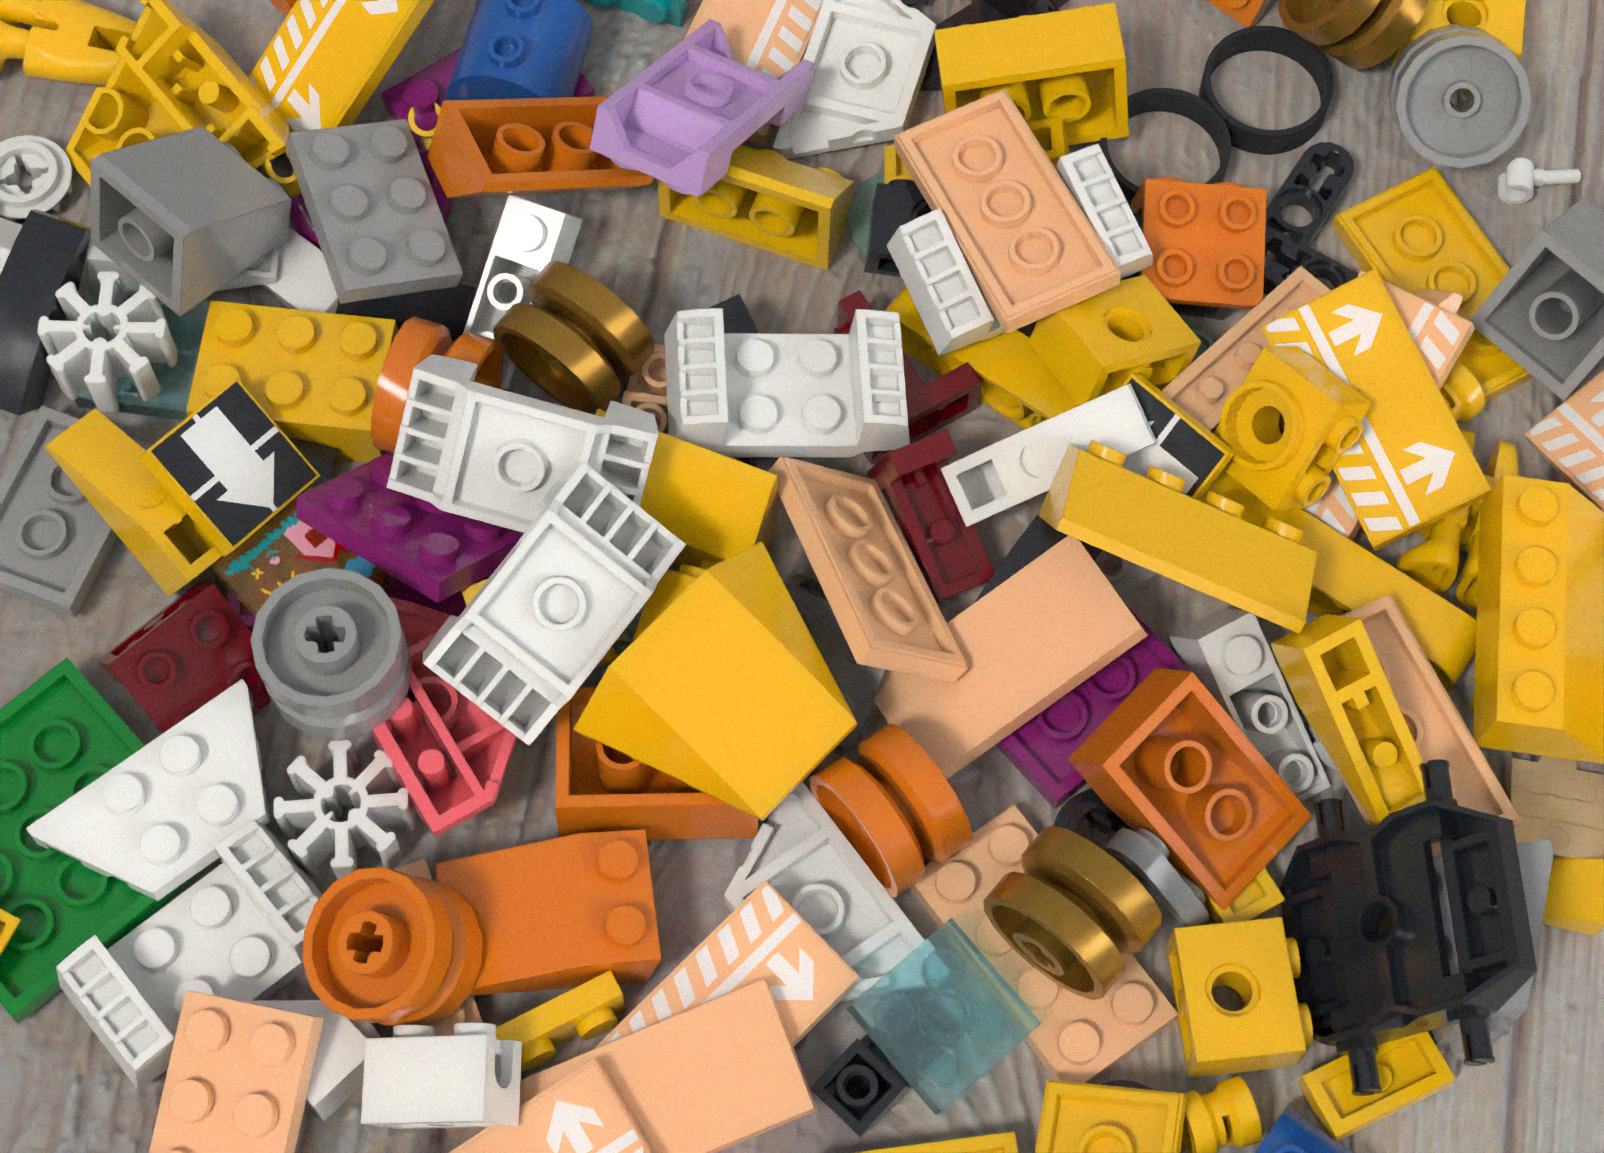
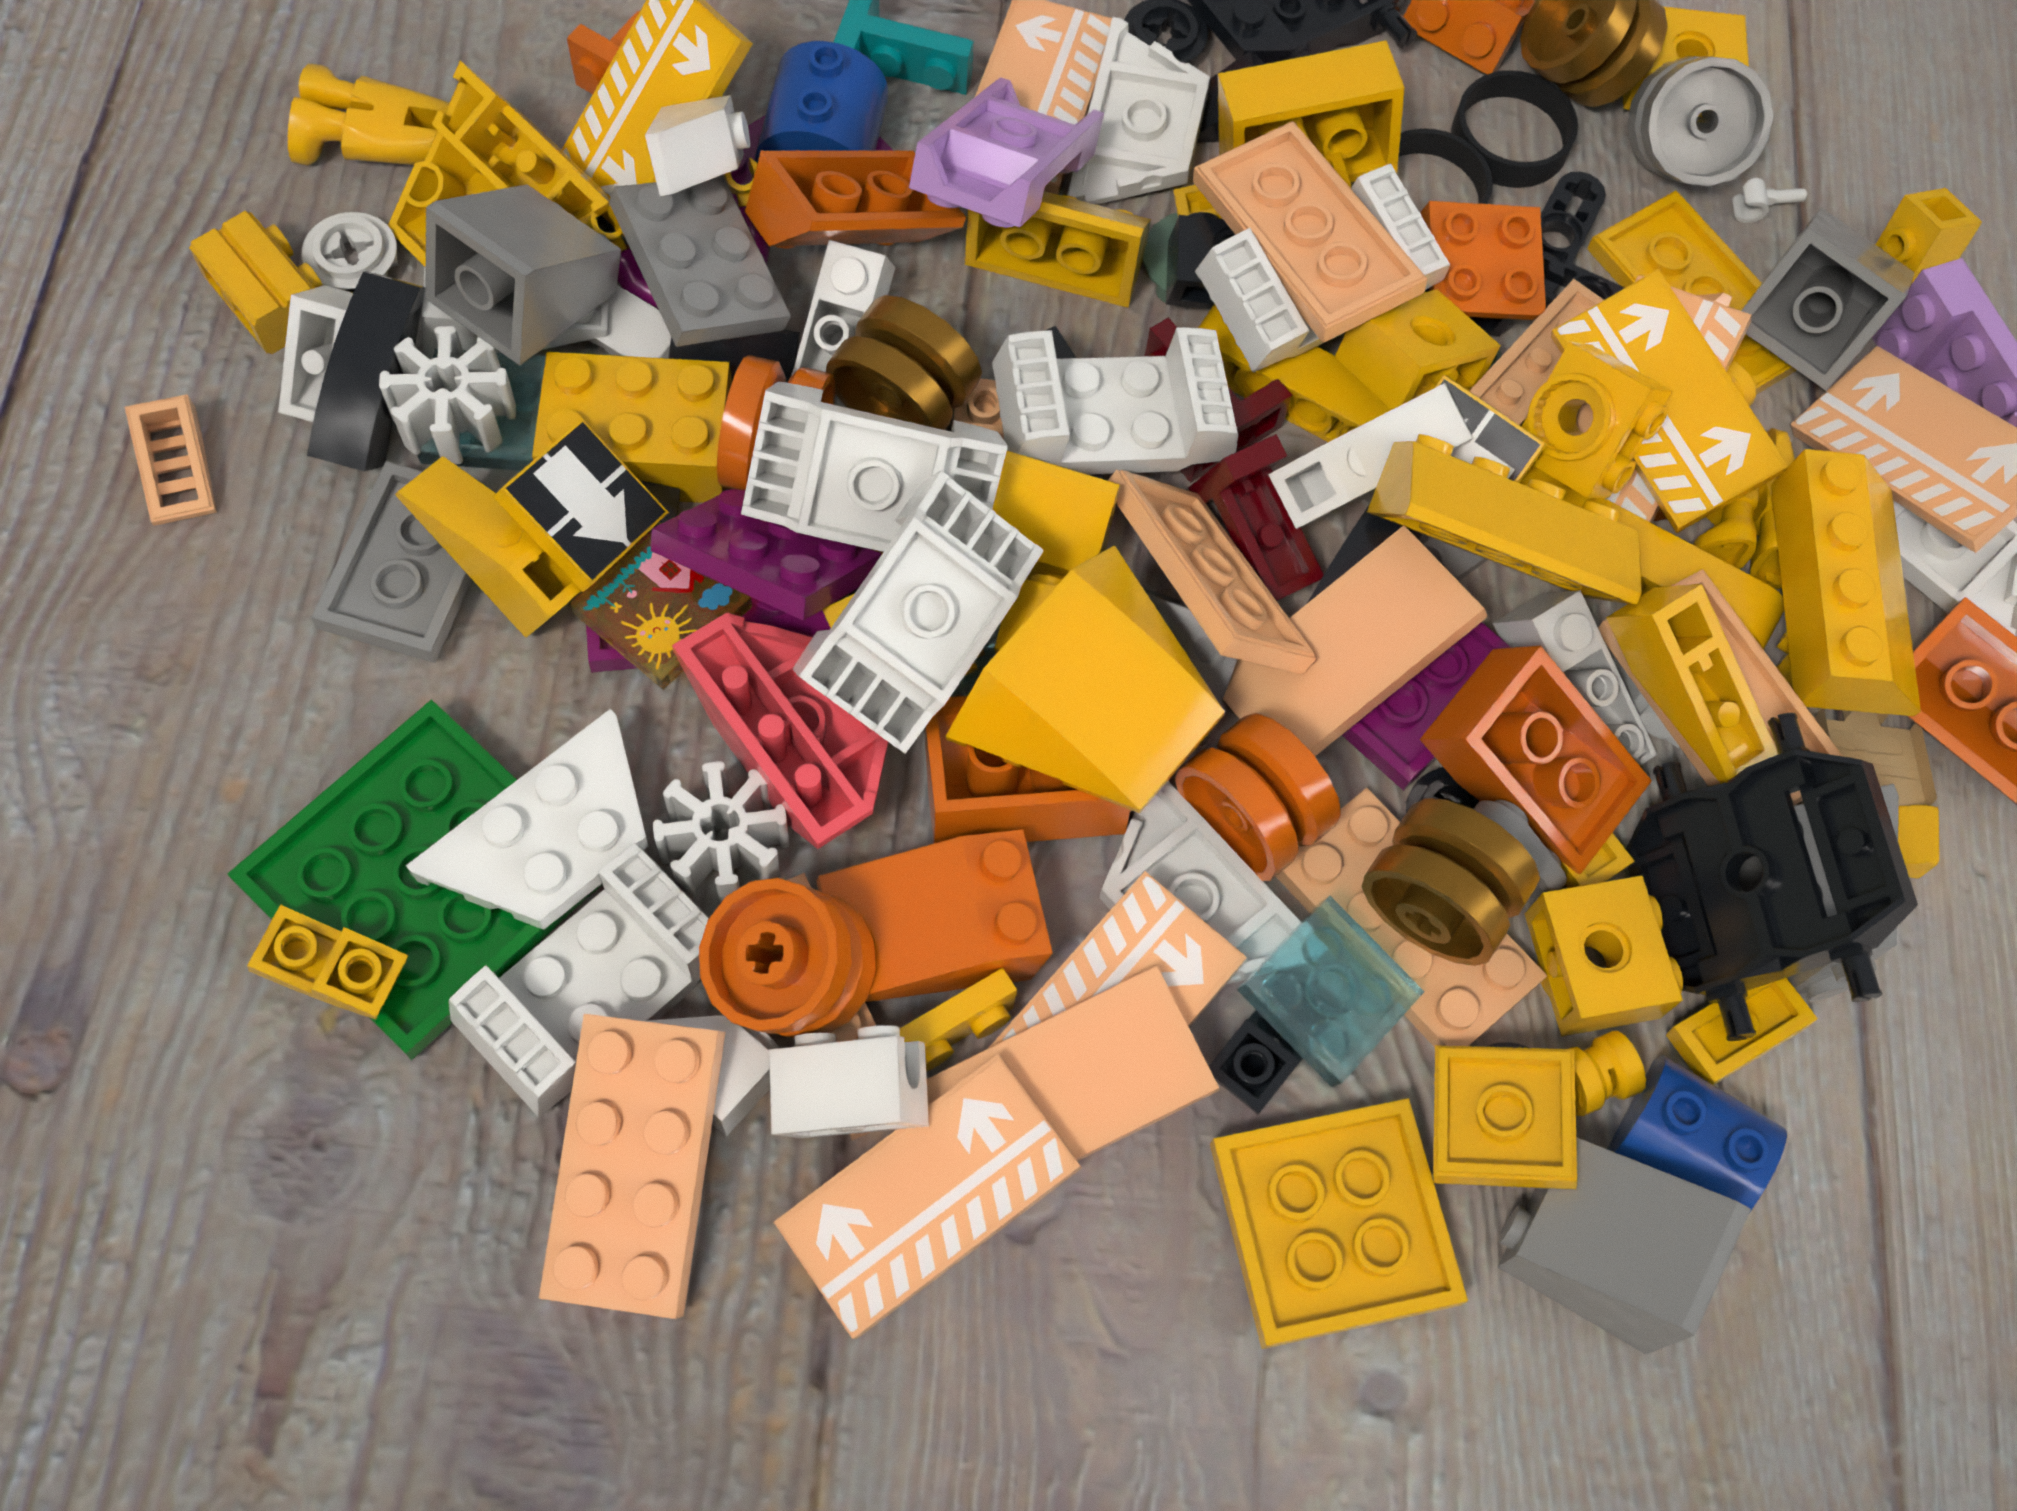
camera: 10 degrees left, 0 degrees up
(186, 657) = (556, 692): dark red bracket -> none
(332, 653) = (704, 673): light grey wheel -> none
(375, 90) = (696, 142): none -> white slope

